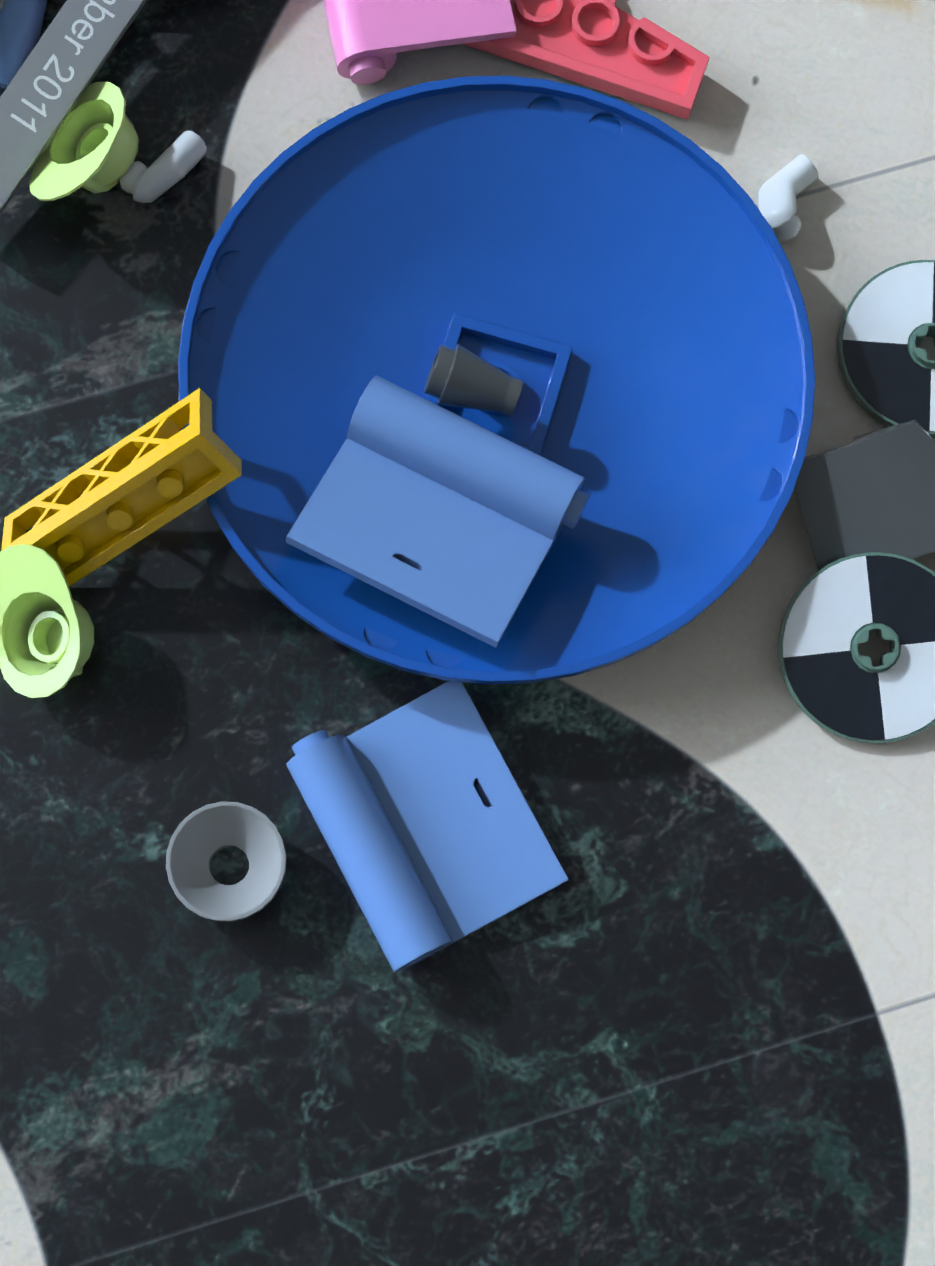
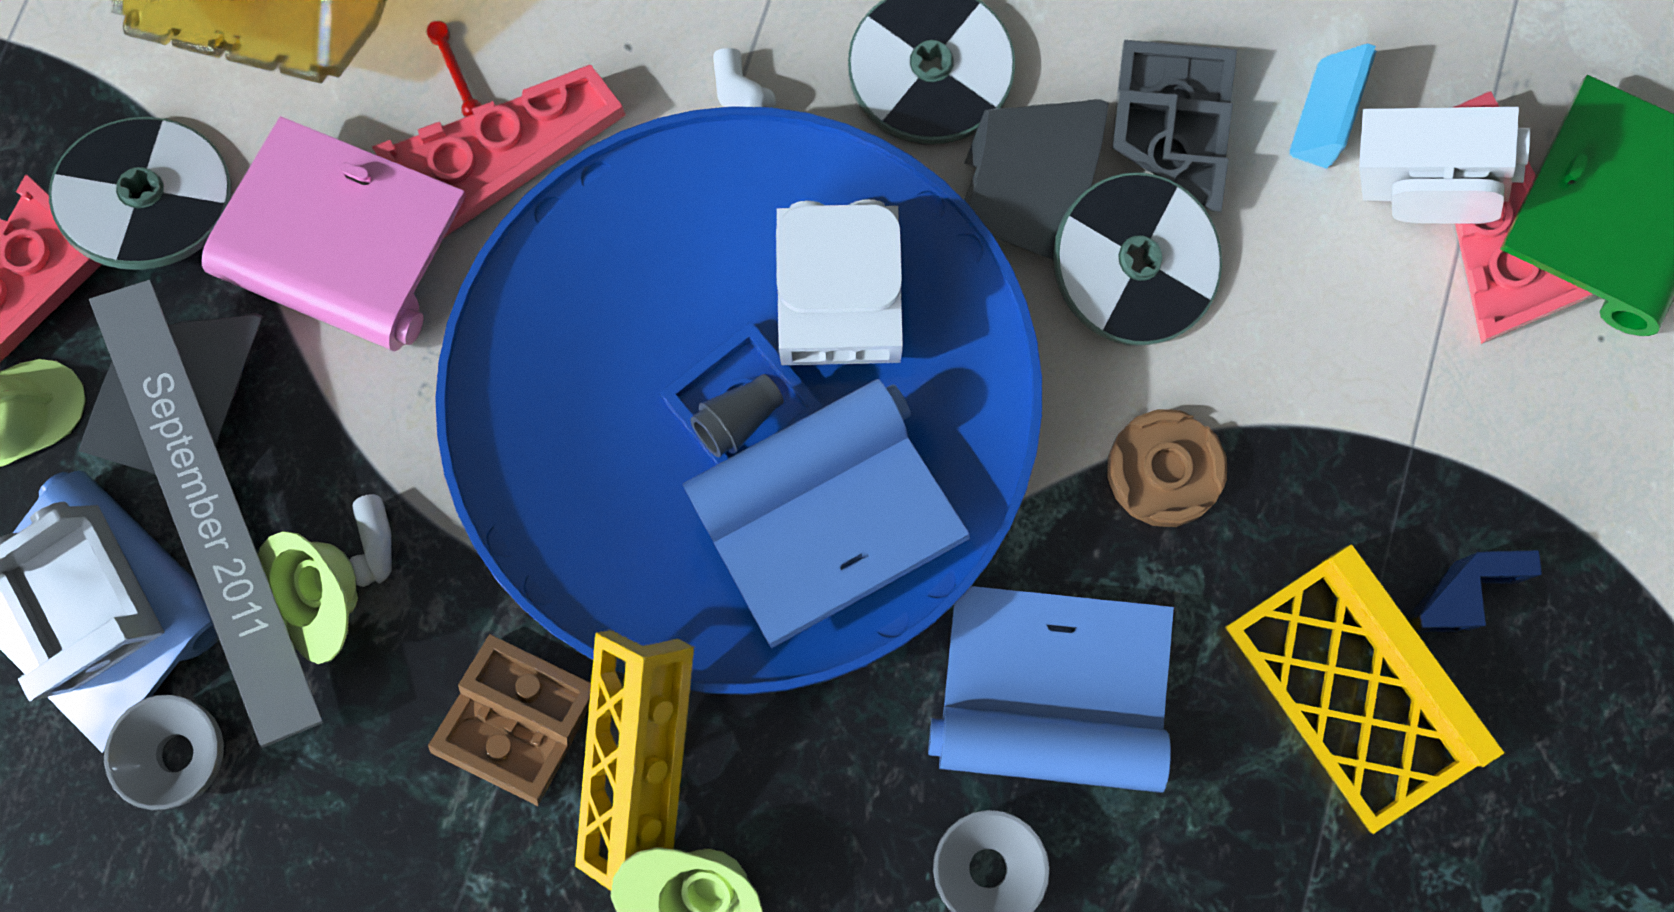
camera: 50 degrees left, 0 degrees up
(90, 383) = (513, 719): none -> medium nougat slope
(648, 388) = (839, 283): none -> white brick
(664, 1117) = (1406, 658): none -> yellow fence
(697, 798) = (1166, 468): none -> medium nougat tile
(746, 1132) = (1457, 597): none -> dark blue slope

